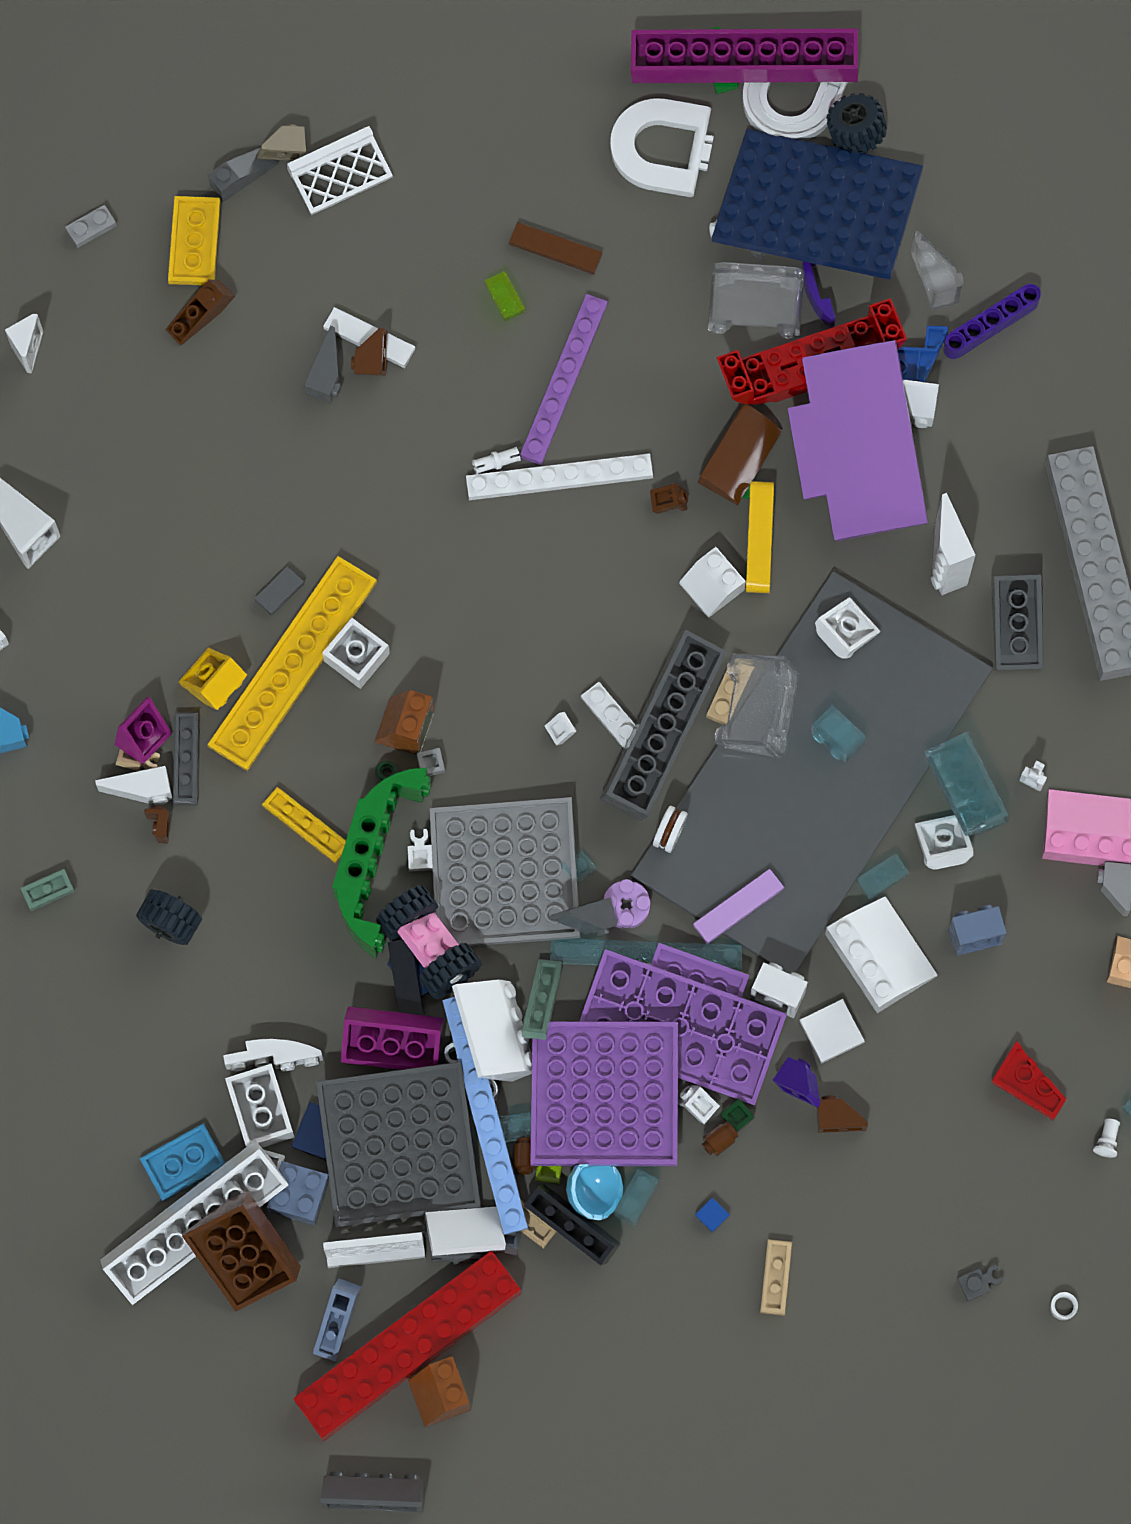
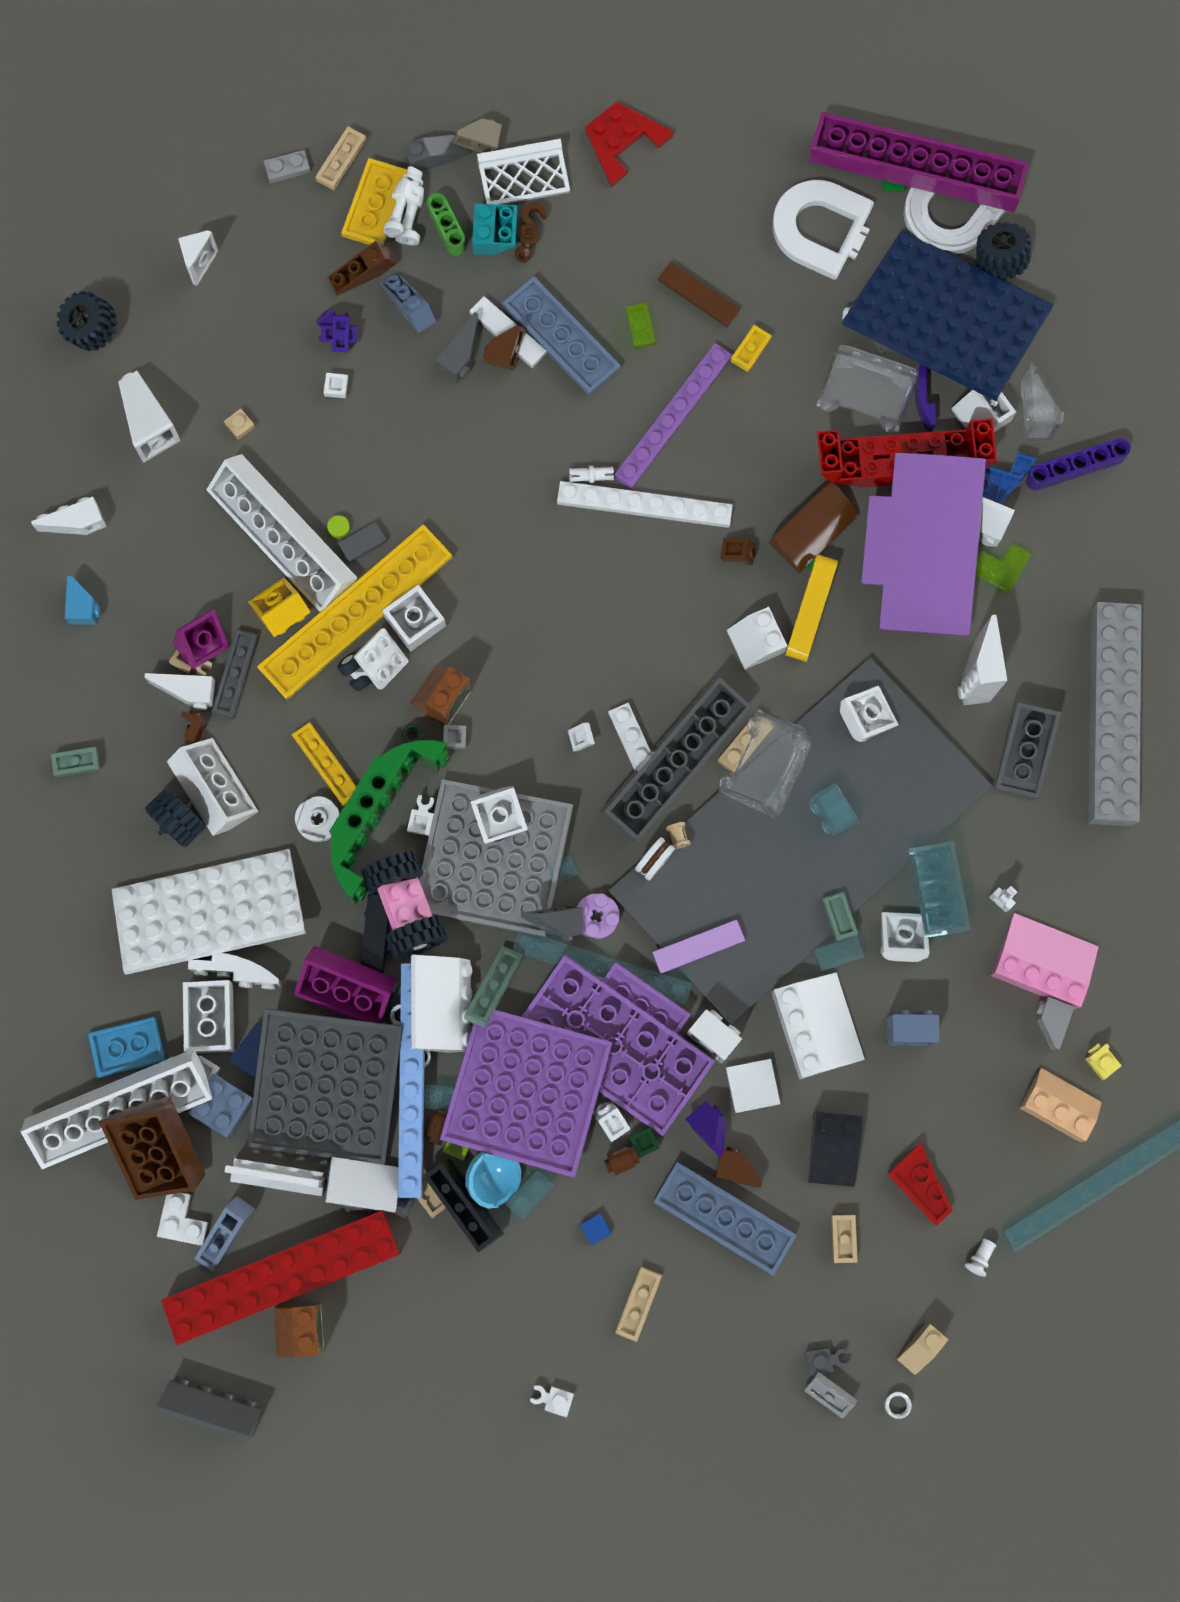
camera: 10 degrees right, 5 degrees up
(117, 503) = (239, 424): none -> tan plate
(145, 203) = (340, 158): none -> tan plate
(192, 602) = (280, 532): none -> white slope
(195, 877) = (212, 786): none -> white slope
(197, 388) = (328, 322): none -> dark purple piece
(206, 438) = (335, 385): none -> white plate
(228, 222) = (407, 194): none -> white piece
(228, 1003) = (207, 911): none -> white plate
(250, 581) = (338, 527): none -> lime tile
(258, 333) = (409, 302): none -> sand blue slope
(270, 234) = (441, 216): none -> bright green beam
(285, 1325) = (176, 1225): none -> white plate
(304, 872) = (311, 808): none -> white plate
(326, 235) = (494, 228): none -> teal slope
(328, 708) = (375, 662): none -> white plate
(362, 229) = (528, 233): none -> reddish brown piece
(424, 101) = (616, 131): none -> red wing
(426, 327) = (561, 336): none -> sand blue plate
(499, 826) = (498, 814): none -> white slope
(625, 290) = (751, 348): none -> yellow plate
(687, 800) = (678, 835): none -> tan bush
(720, 1394) = (556, 1401): none -> white plate
(839, 1169) = (725, 1218): none -> sand blue plate
(873, 838) = (840, 916): none -> sand green tile
(875, 289) = (977, 406): none -> white slope
(931, 1070) = (834, 1148): none -> black slope
(946, 451) = (1005, 572): none -> clear neon green plate
(965, 1157) = (844, 1238): none -> tan plate
(993, 1313) = (830, 1395): none -> light grey plate
(1073, 1243) = (922, 1348): none -> tan slope

